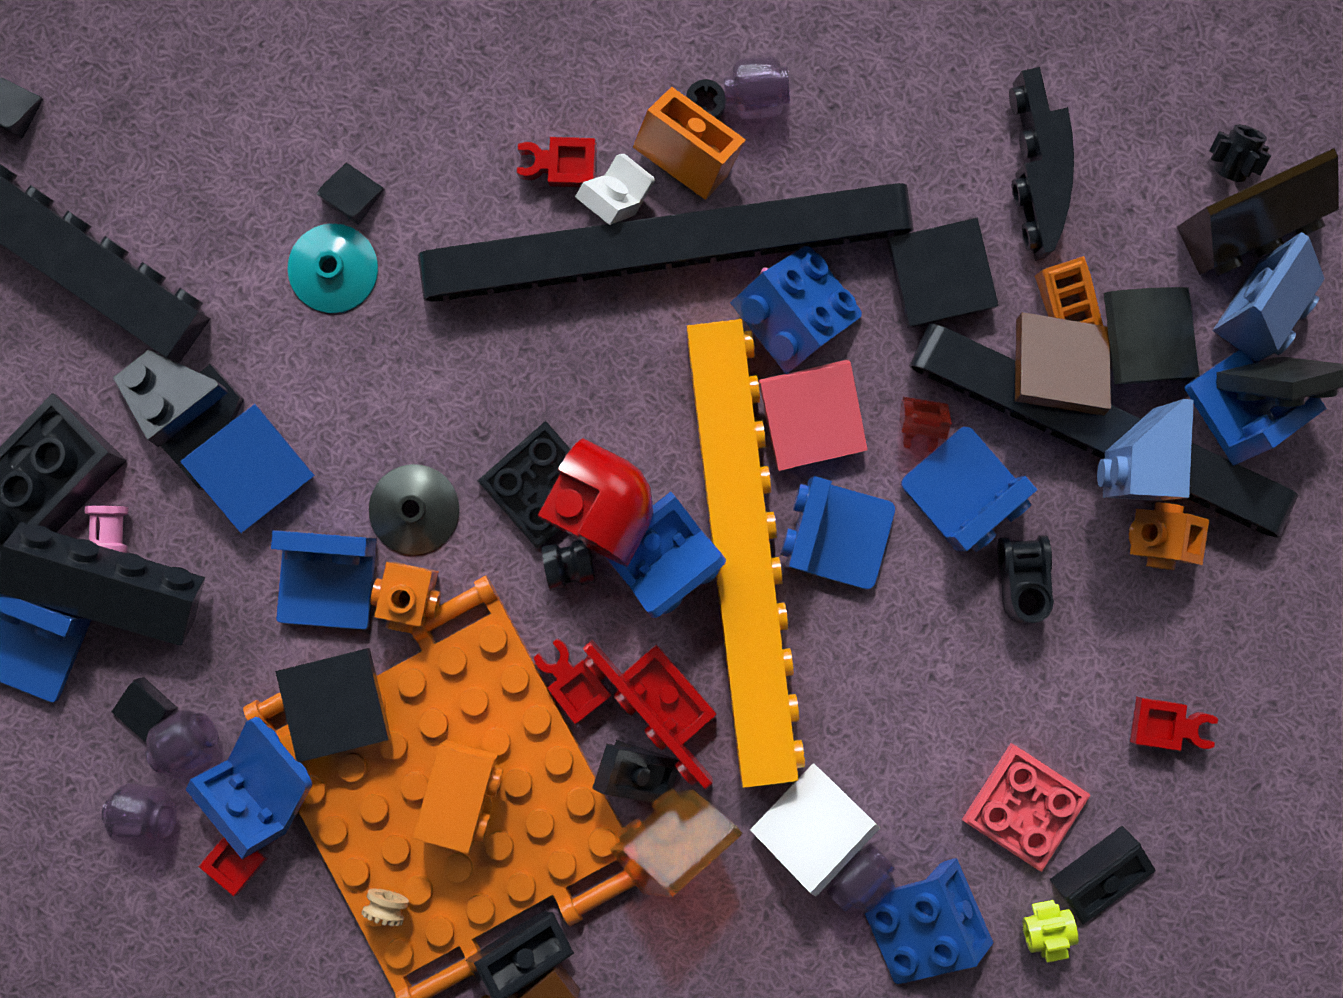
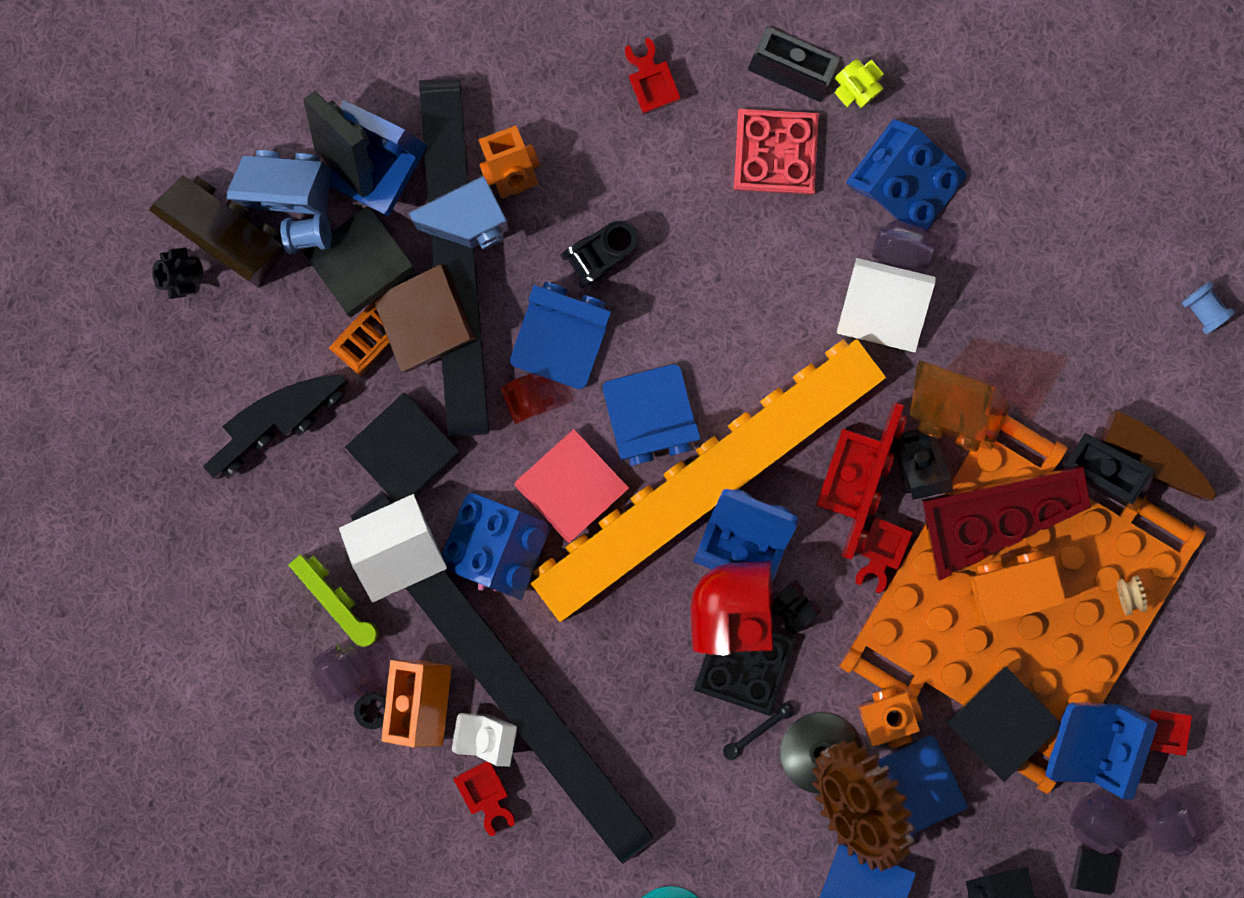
camera: 120 degrees left, 0 degrees up
(331, 517) = (863, 805): none -> reddish brown gear
(466, 425) = (732, 750): none -> black hinge
(544, 807) = (984, 519): none -> dark red wing
(832, 122) = (336, 601): none -> lime plate
(854, 201) = (392, 548): none -> white slope
(1209, 298) = (306, 233): none -> medium blue bush

